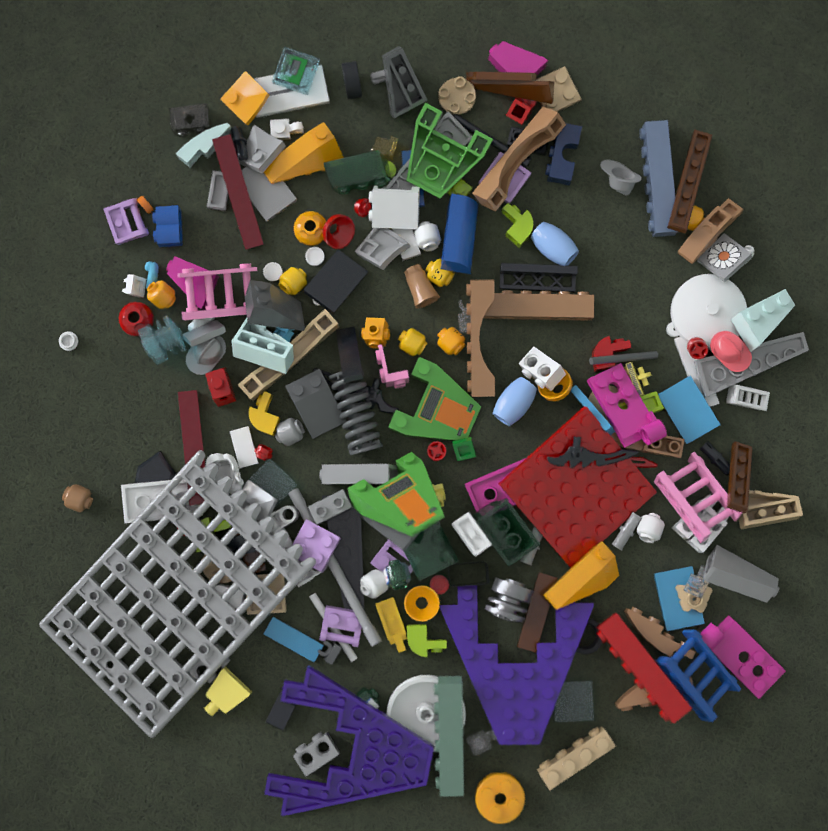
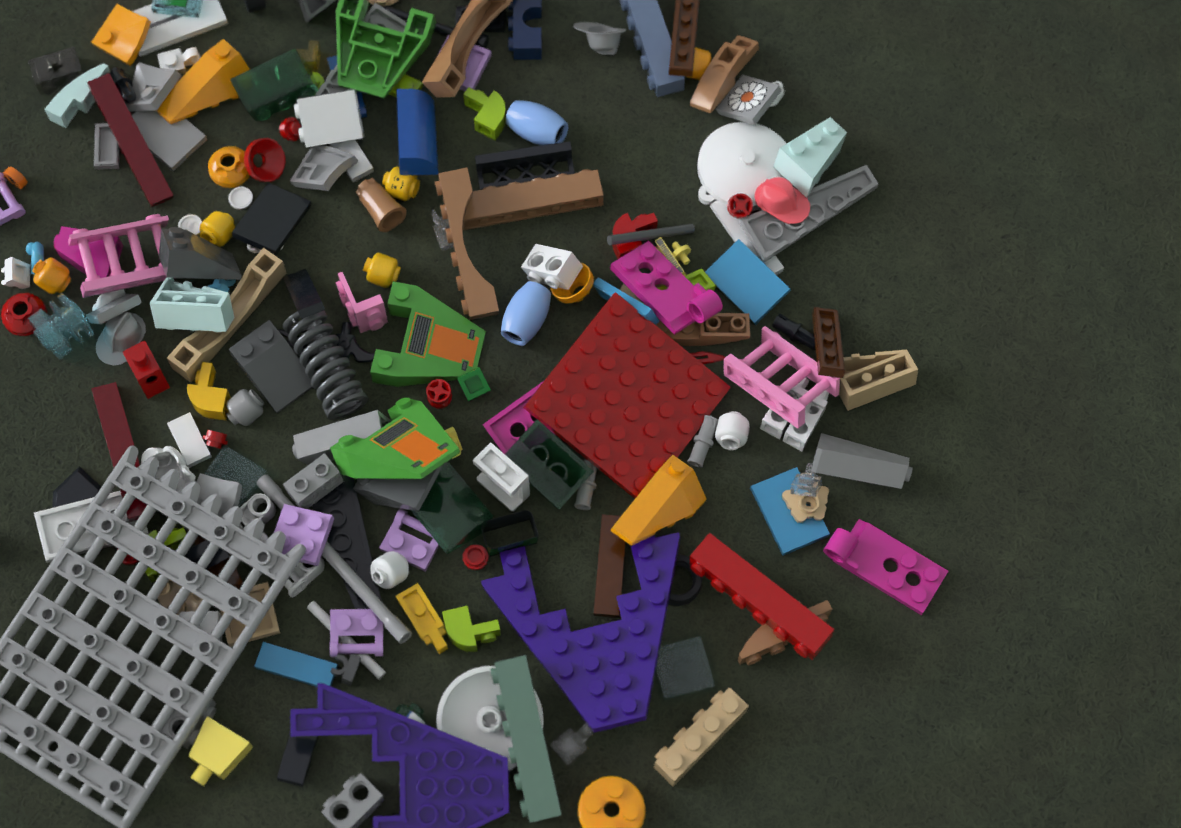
camera: 10 degrees left, 15 degrees down
(168, 226) = (48, 196): blue brick -> none
(375, 332) = (330, 263): light orange brick -> none
(397, 575) = (416, 549): clear green head -> none
(417, 613) = (456, 569): light orange piece -> none
(427, 236) = (377, 146): white head -> none
(451, 341) = (431, 259): light orange head -> none
(509, 599) = (569, 551): flat silver wheel -> none
(578, 454) = (616, 349): black piece -> none
(651, 632) = (779, 567): medium nougat slope -> none
(682, 682) = (845, 630): blue fence -> none
(736, 393) = (804, 259): white slope -> none

